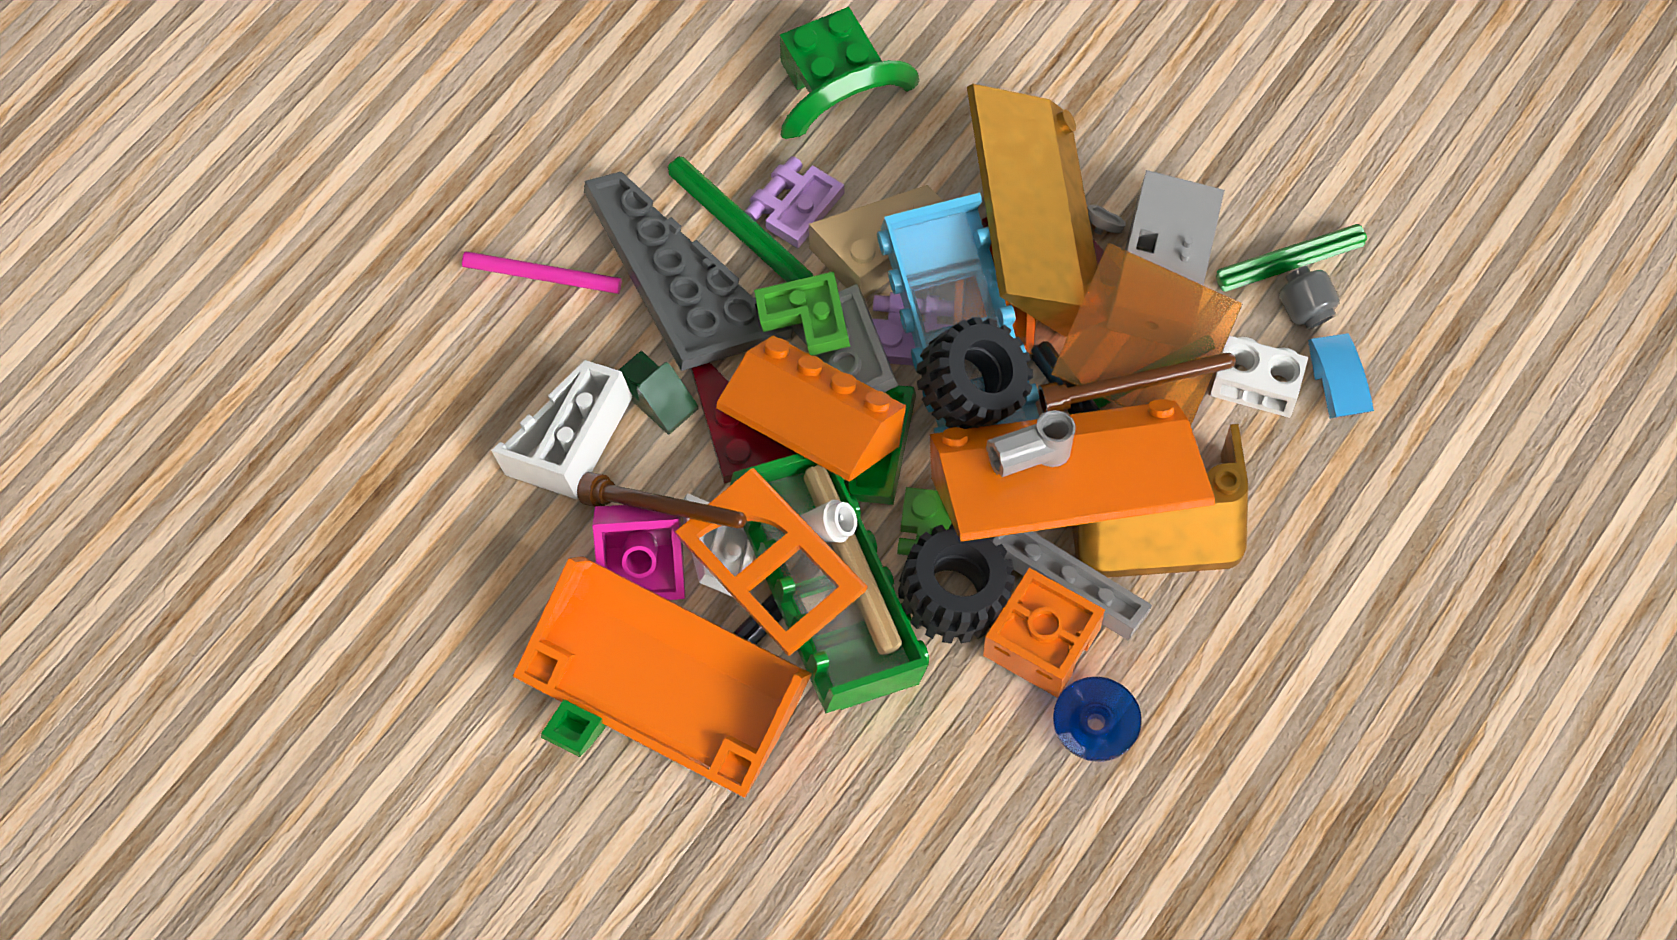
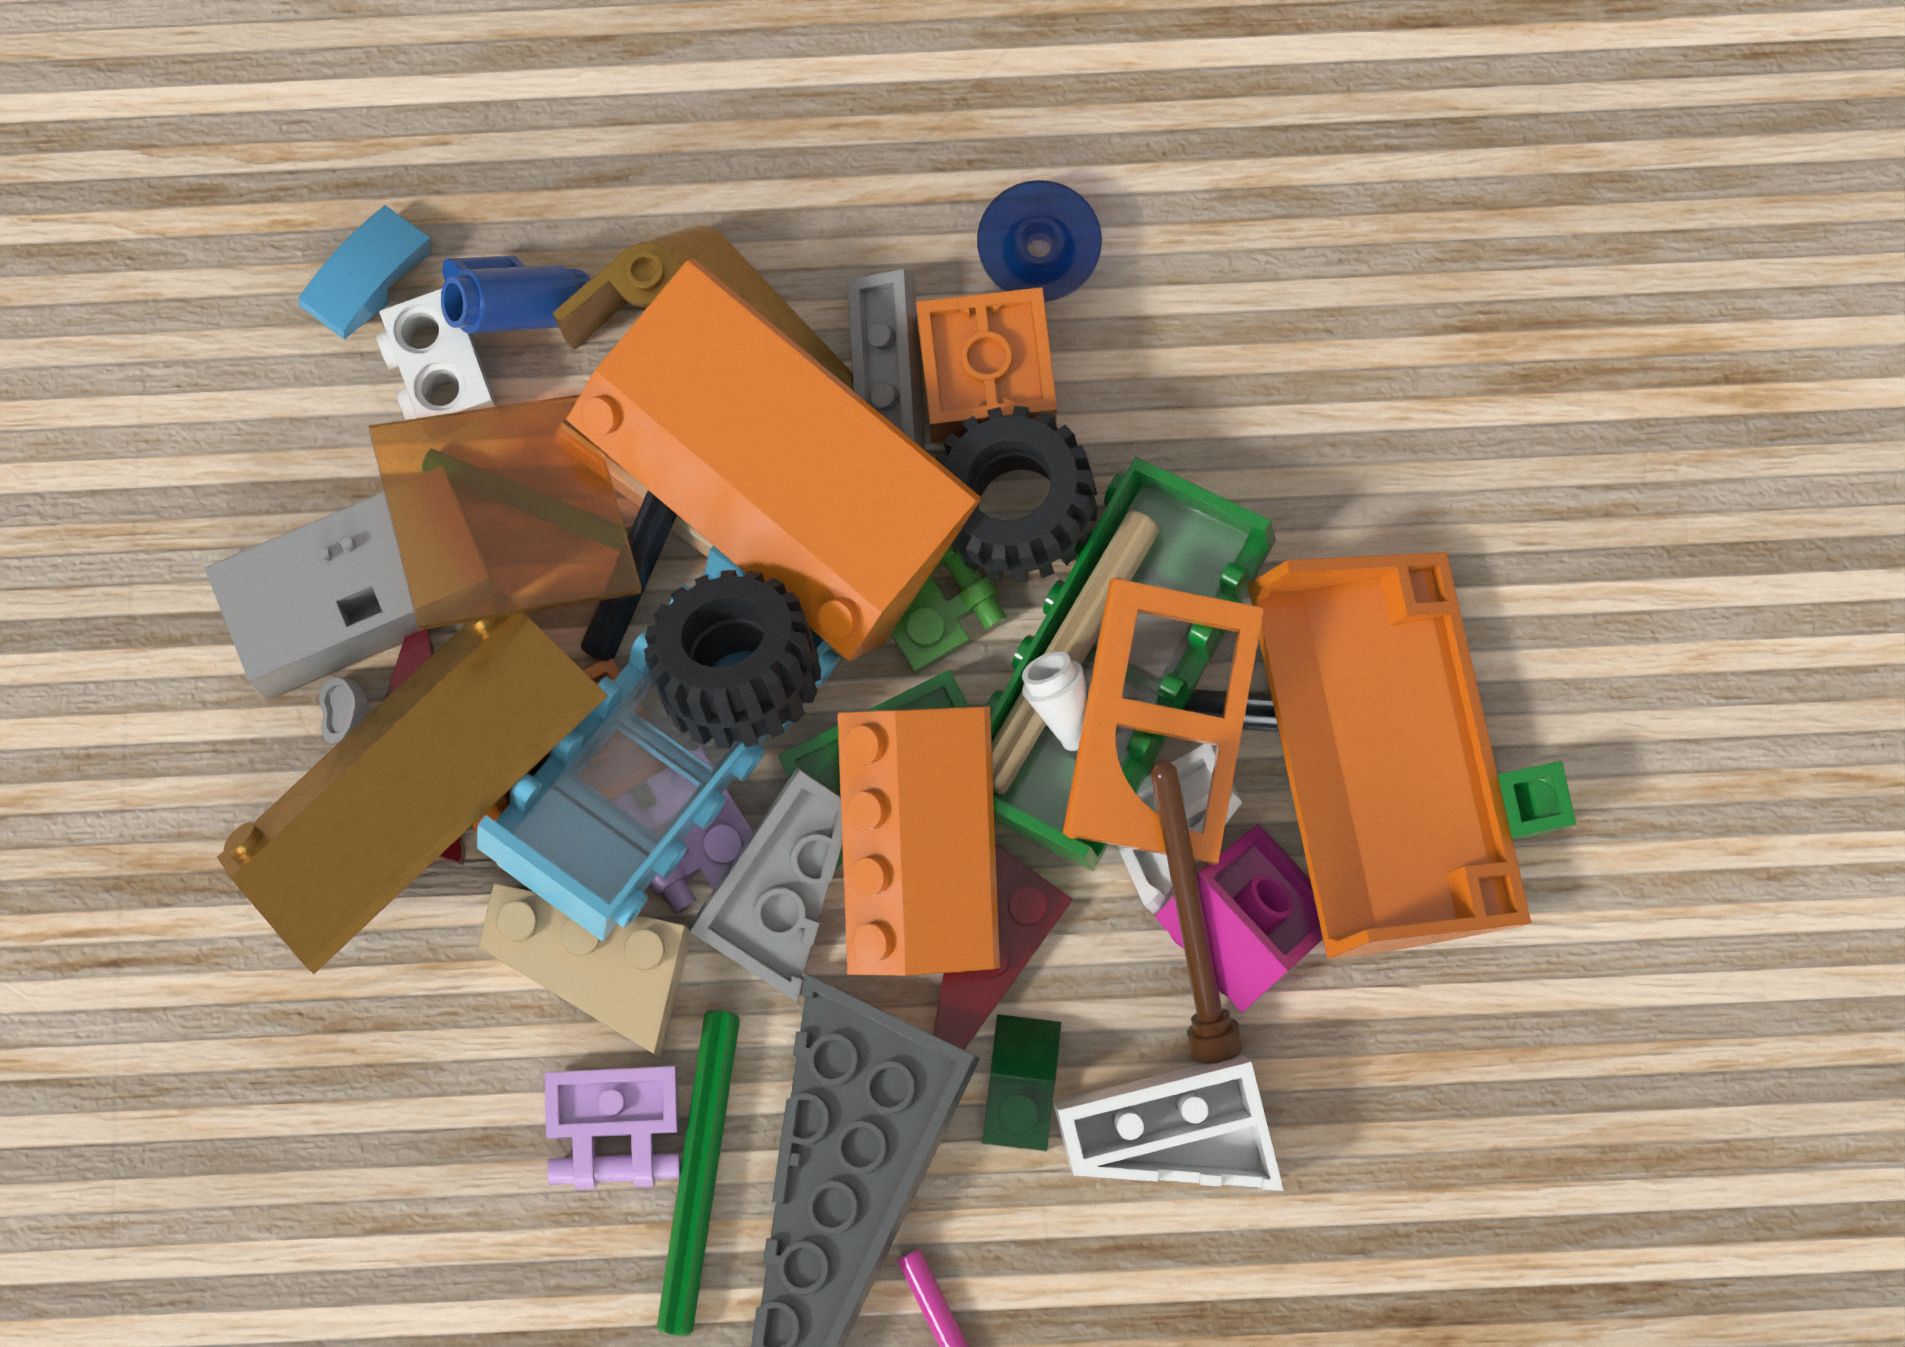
camera: 125 degrees left, 15 degrees up
(806, 301) = (763, 959): bright green plate -> none
(834, 63) = (370, 1223): green piece -> none
(1033, 444) = (797, 501): light grey piece -> none
(1060, 397) = (670, 557): reddish brown piece -> none
(1267, 424) = (505, 293): none -> blue piece
(1291, 257) = (227, 444): axle -> none
(1309, 297) = (278, 377): dark grey head -> none

